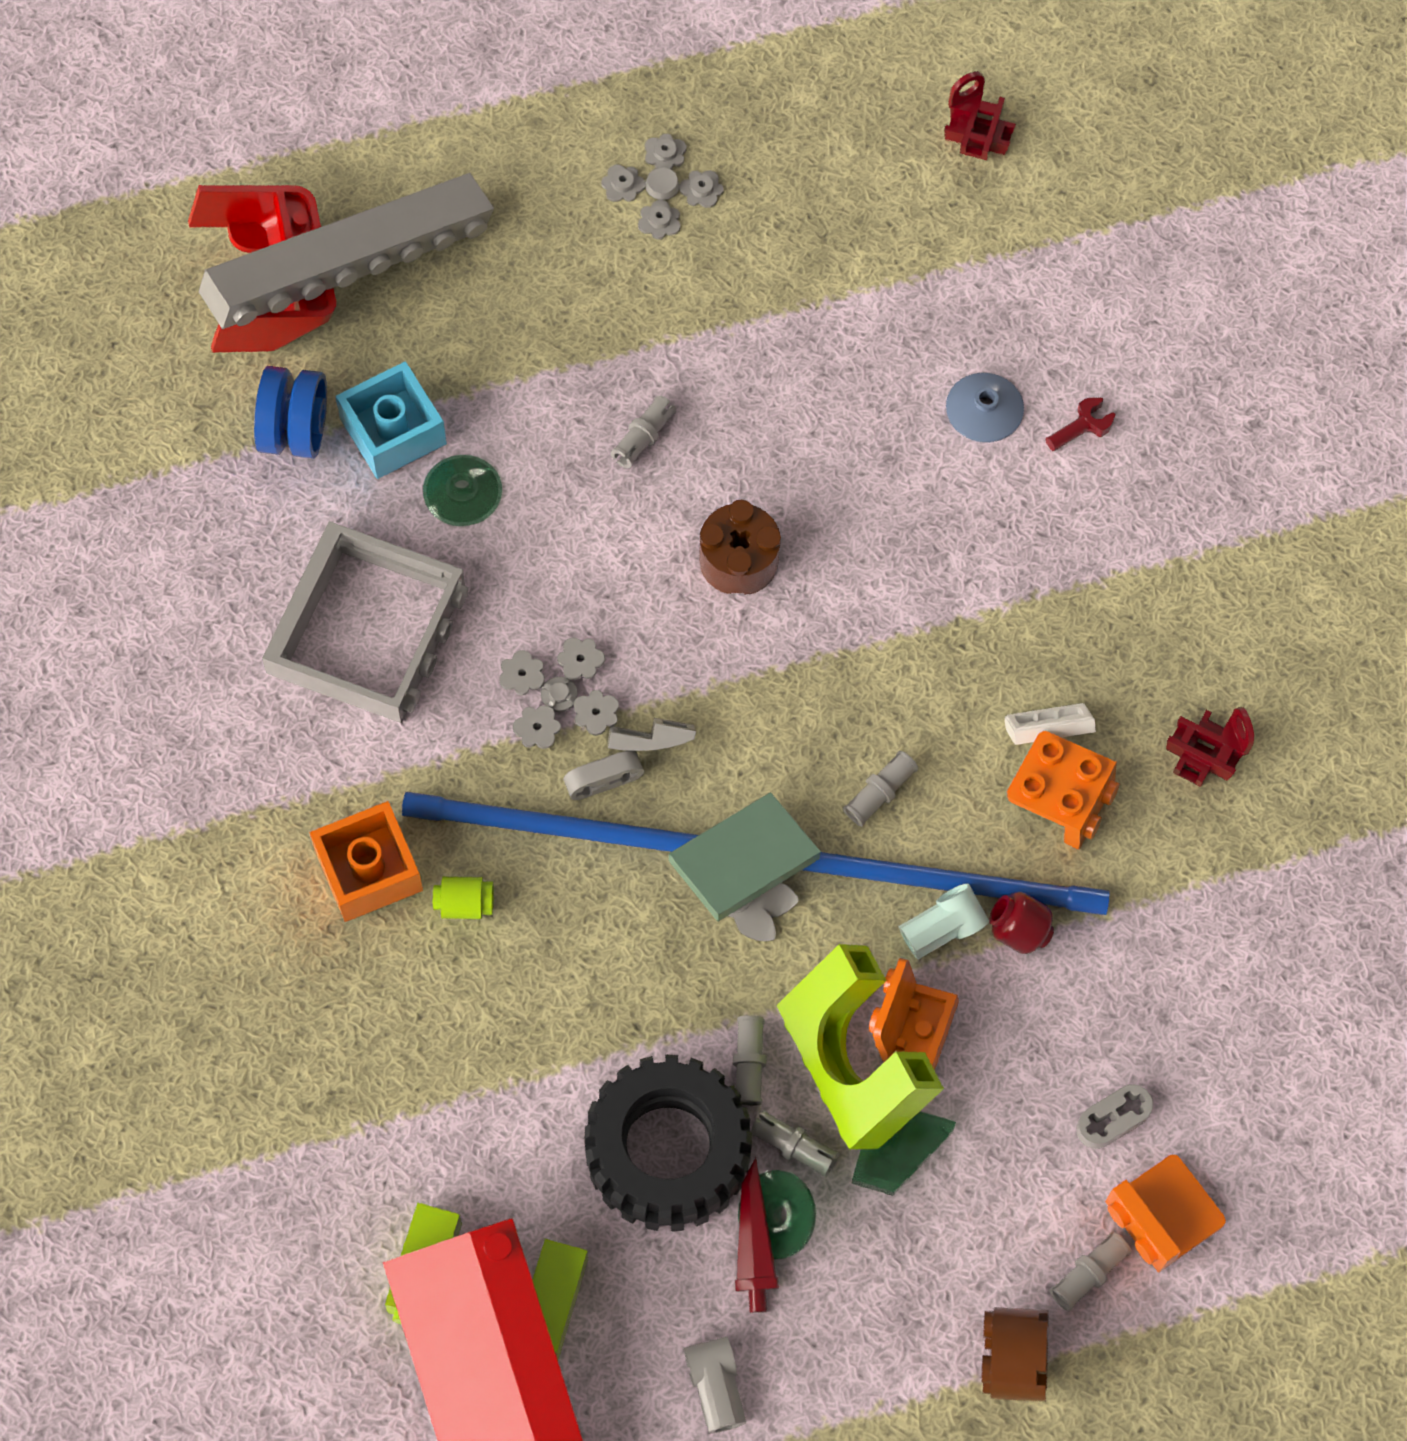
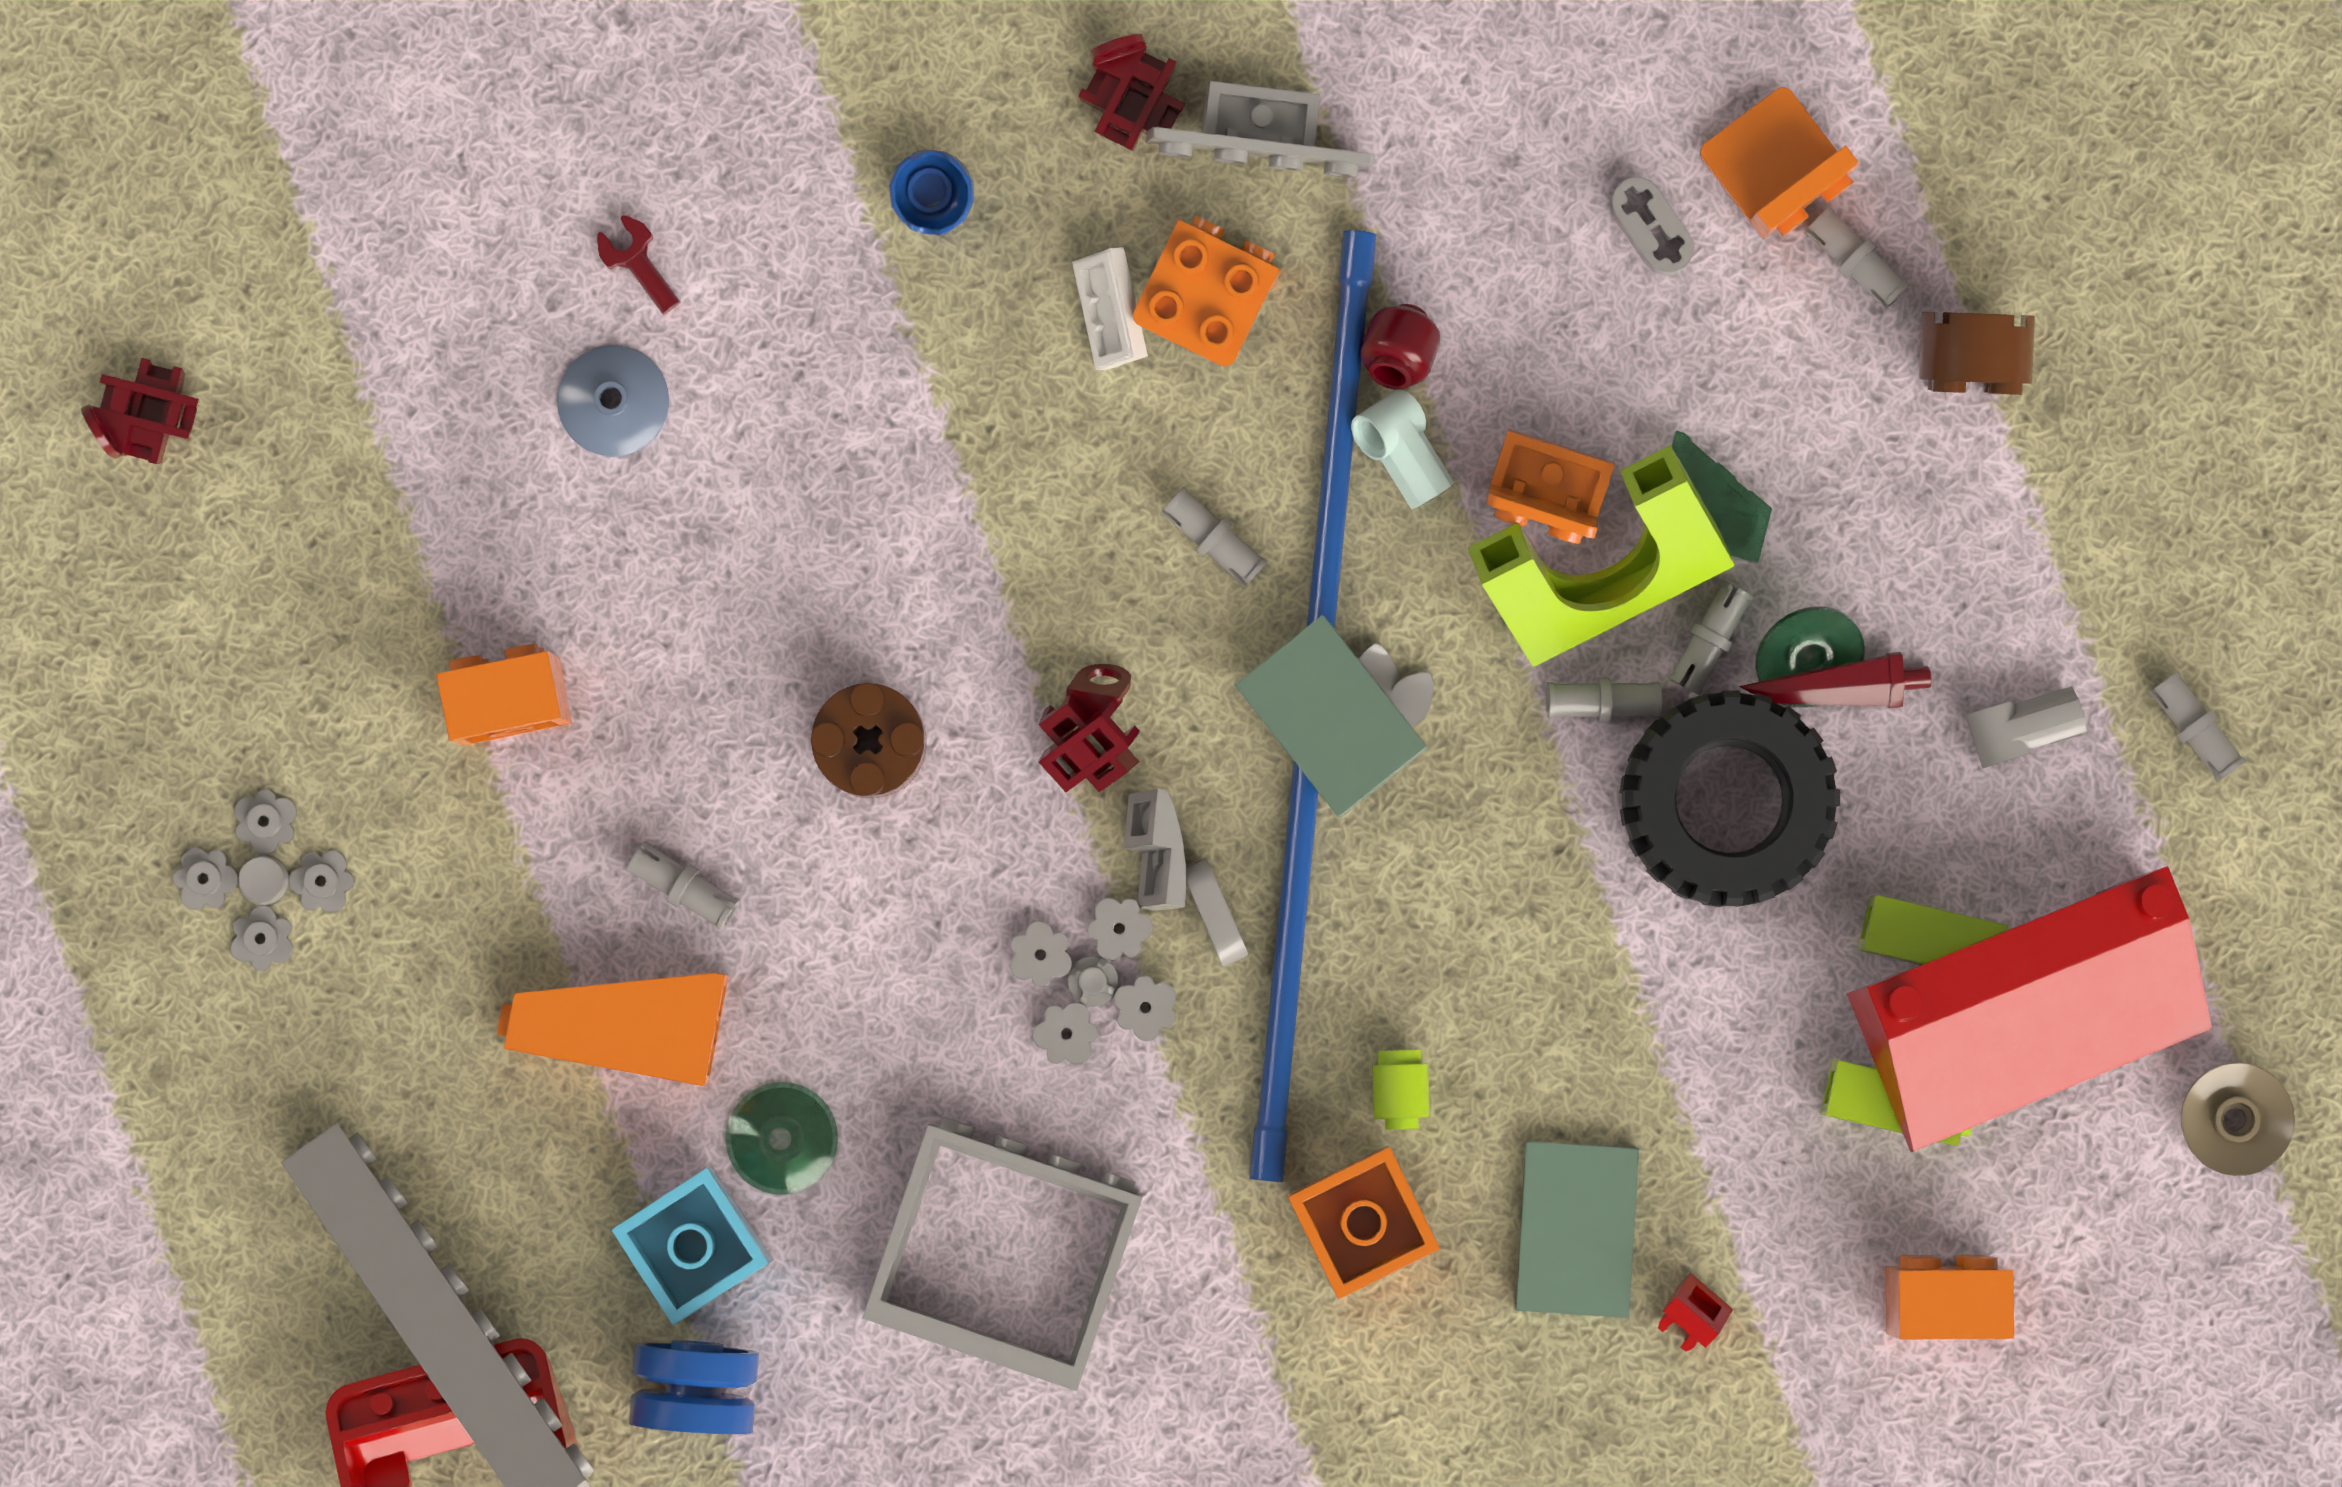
camera: 90 degrees left, 20 degrees up
(263, 1290) = (1949, 1301): none -> orange brick
(276, 1104) = (1696, 1311): none -> red tile
(347, 1023) = (1577, 1229): none -> sand green tile
(545, 394) = (633, 1026): none -> orange slope
(737, 690) = (1089, 709): none -> dark red piece
(780, 317) = (503, 696): none -> orange brick
(1142, 607) = (928, 179): none -> blue hair
(1188, 831) = (1262, 124): none -> light grey bracket

